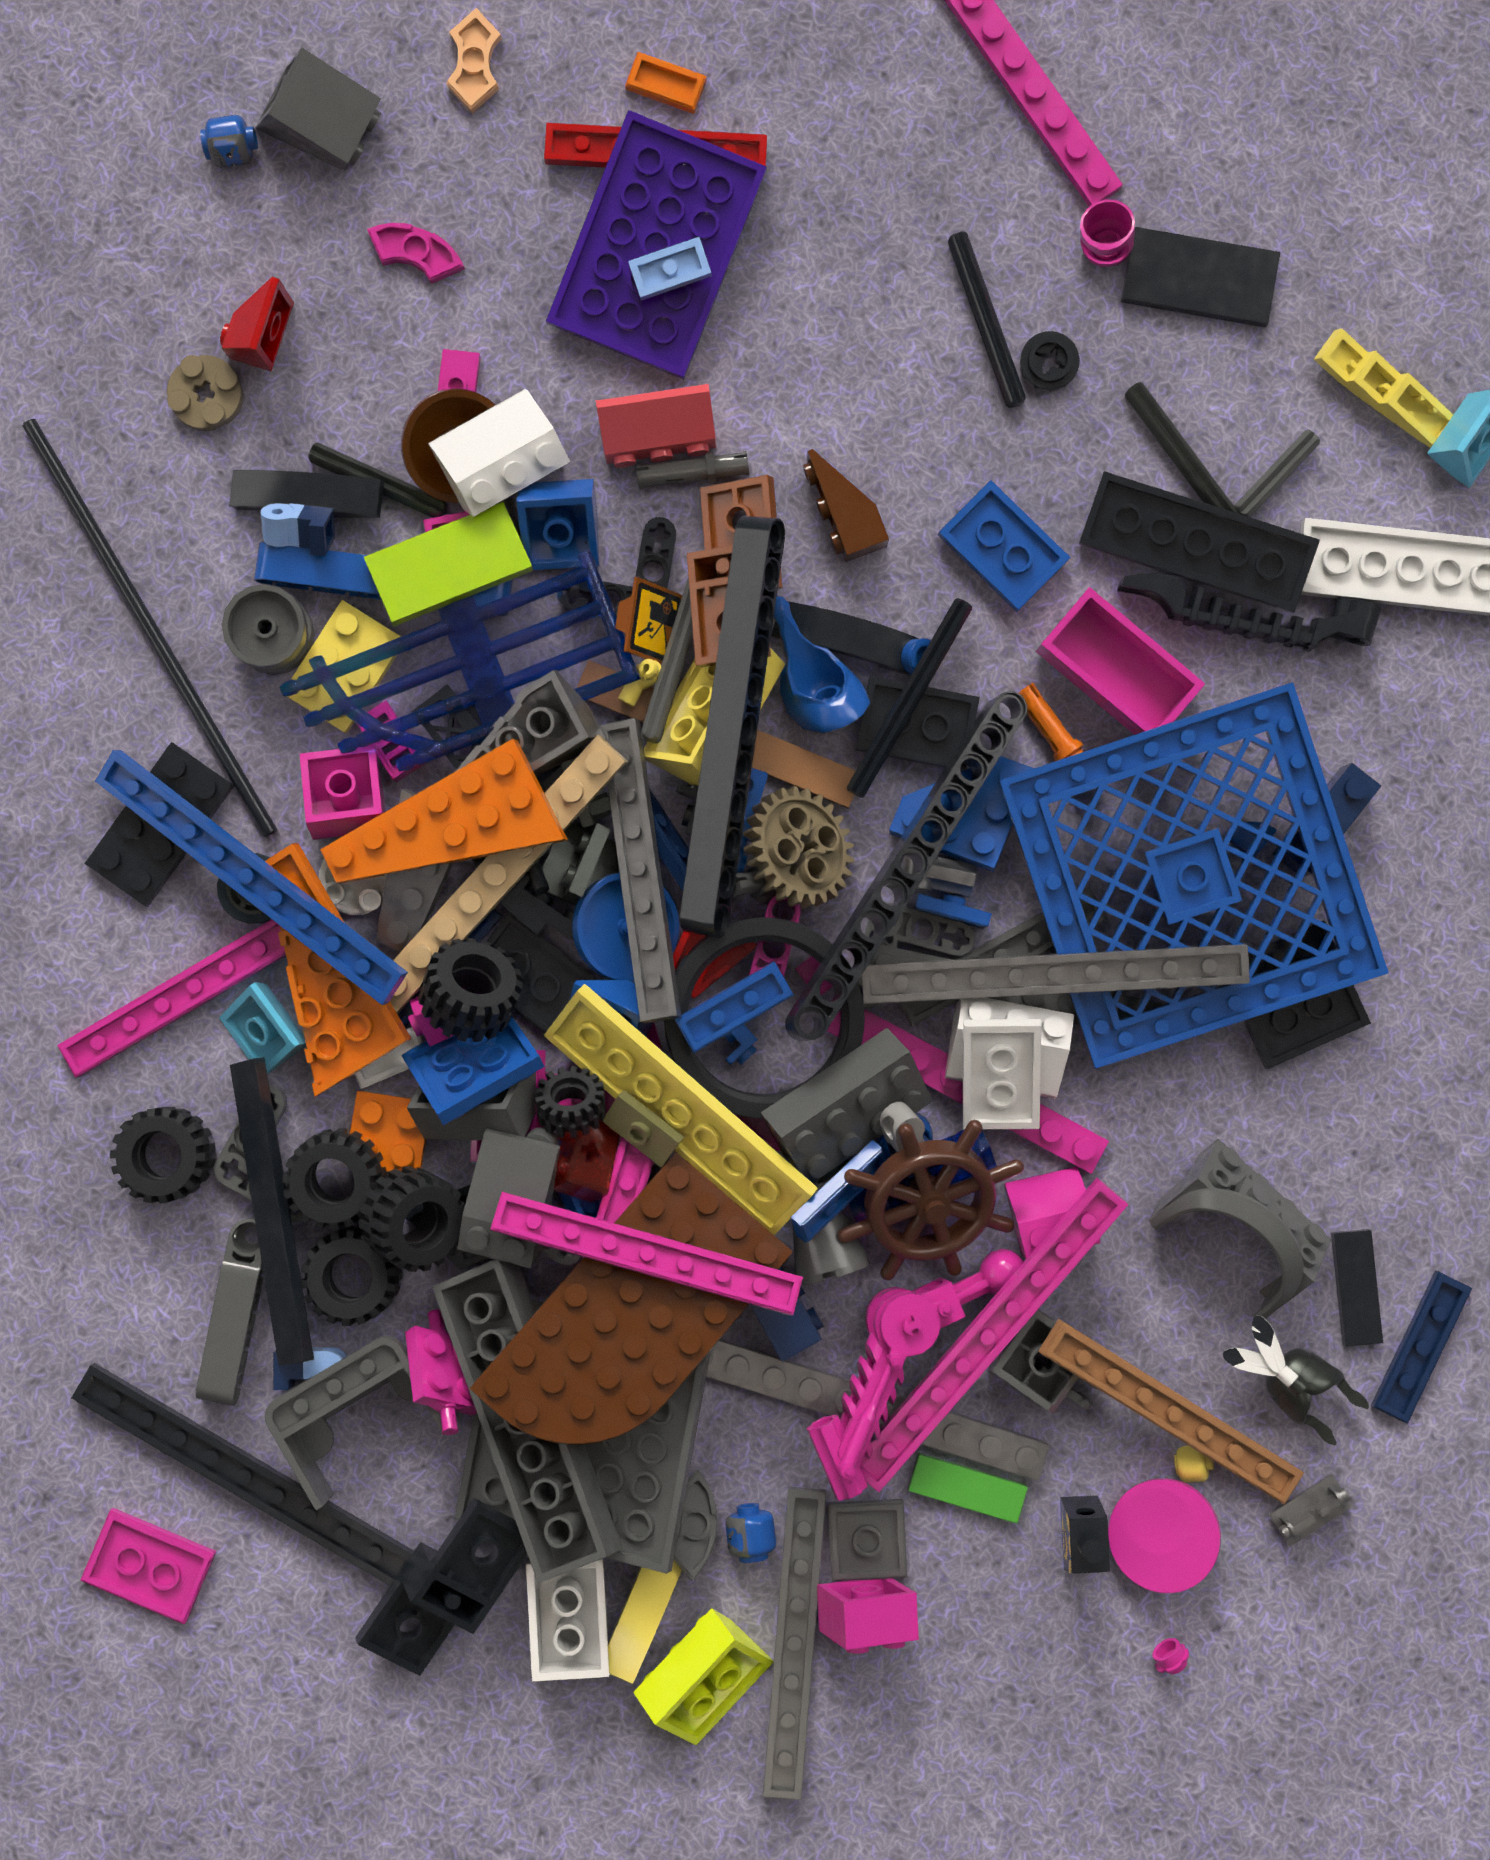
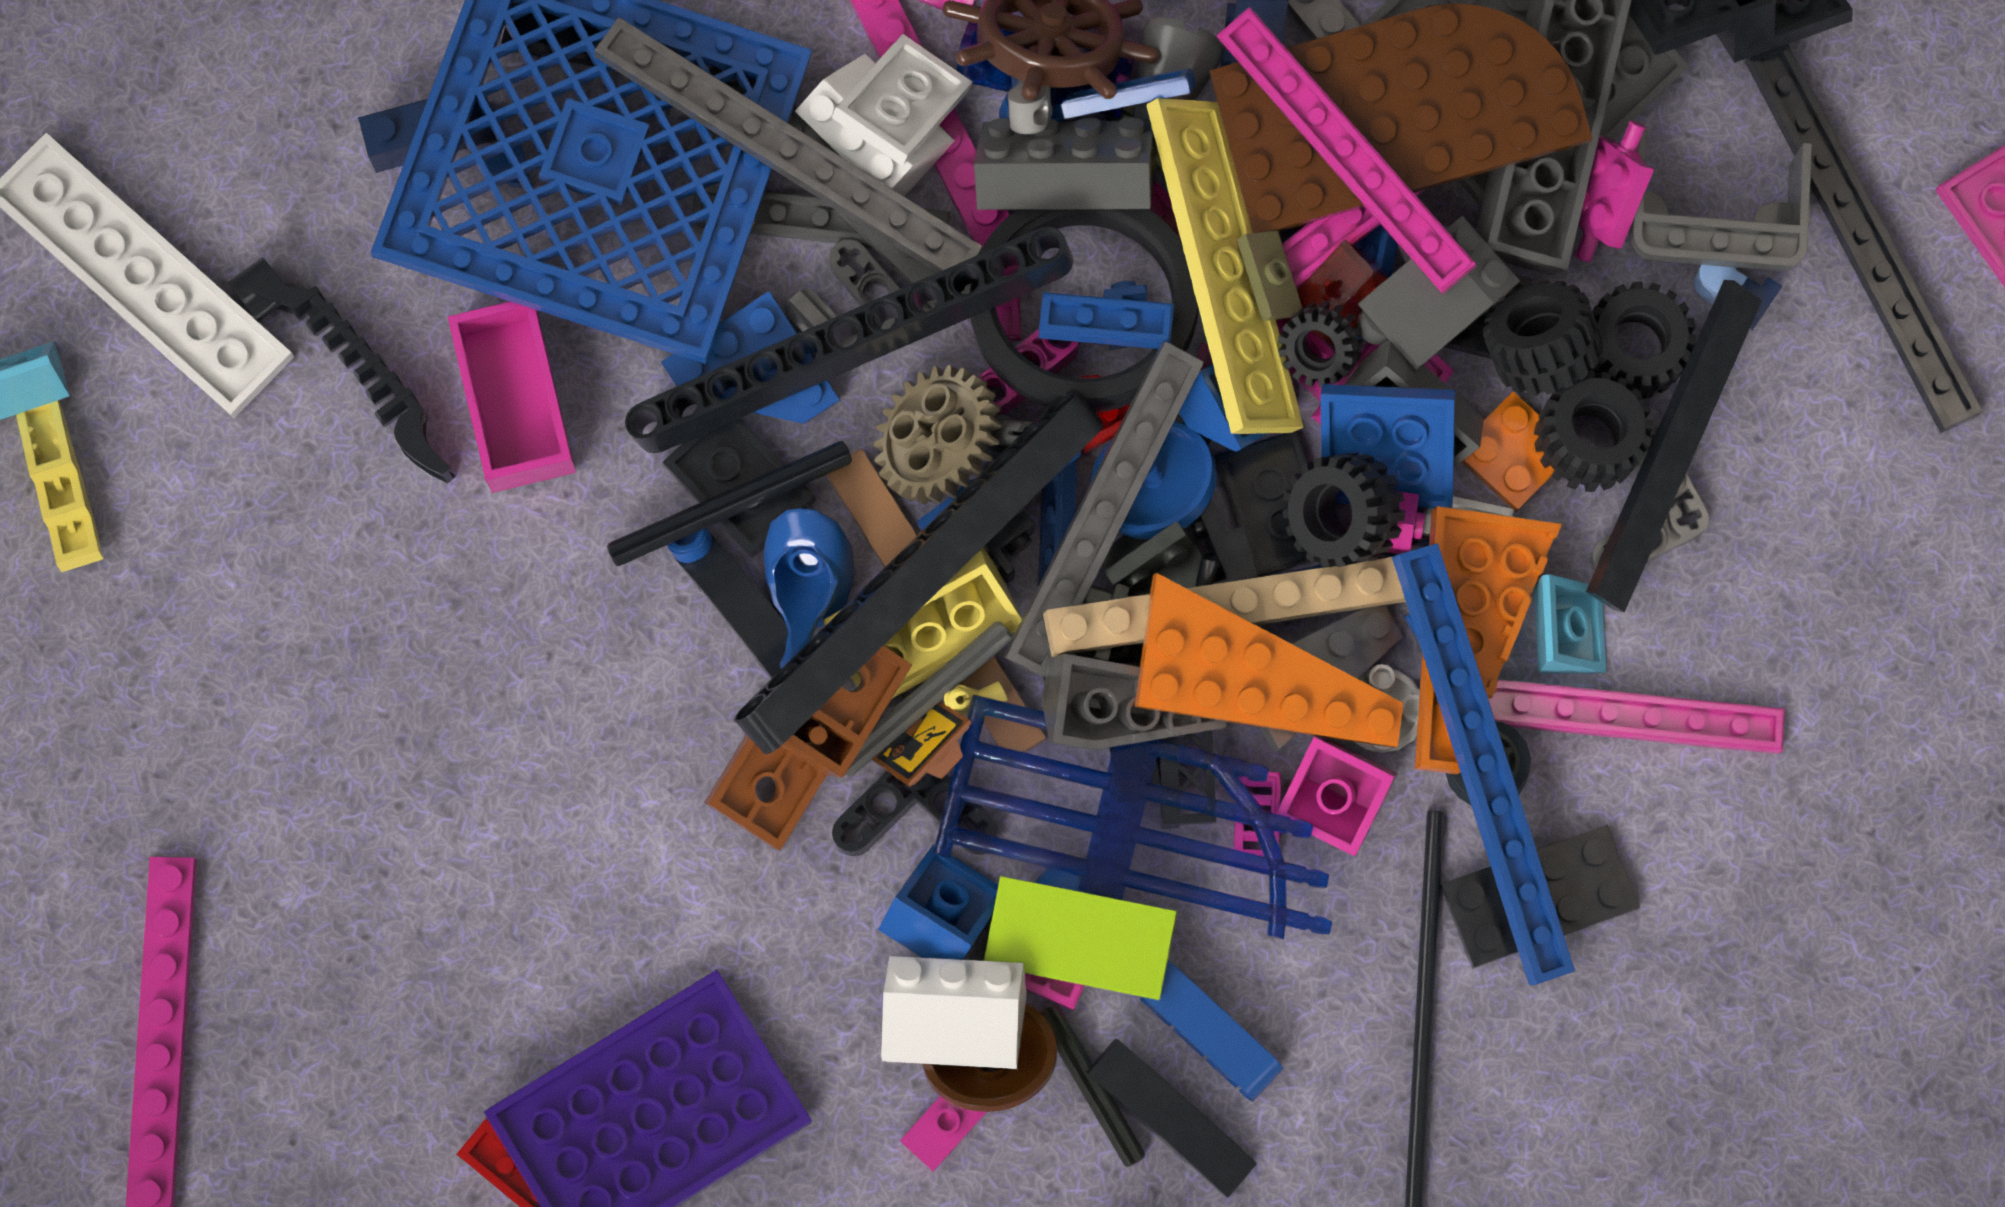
camera: 145 degrees left, 10 degrees down
(132, 1160) = (1721, 597): black tyre -> none
(231, 1319) = (1777, 382): dark grey piece -> none
(247, 624) = (1296, 1029): dark grey wheel -> none
(298, 527) = (1203, 1081): leg -> none
(343, 636) = (1238, 945): light yellow plate -> none
(657, 425) = (779, 933): coral slope -> none
(670, 268) = (653, 1074): light blue plate -> none
(693, 469) = (773, 873): dark grey pin -> none
(851, 513) = (655, 715): reddish brown slope -> none
(952, 908) = (832, 284): blue plate -> none
(986, 319) = (380, 821): black axle -> none
(1003, 546) = (531, 589): blue plate -> none
(1049, 724) = (617, 360): orange pin -> none
(1066, 357) = (332, 731): black gear -> none
(1107, 220) = (211, 797): dark pink helmet -> none
(1177, 447) = (297, 530): pearl dark grey axle -> none
(1199, 542) = (348, 459): black plate -> none
(1200, 277) = (145, 716): black tile -> none
(1277, 473) = (223, 476): dark grey axle -> none

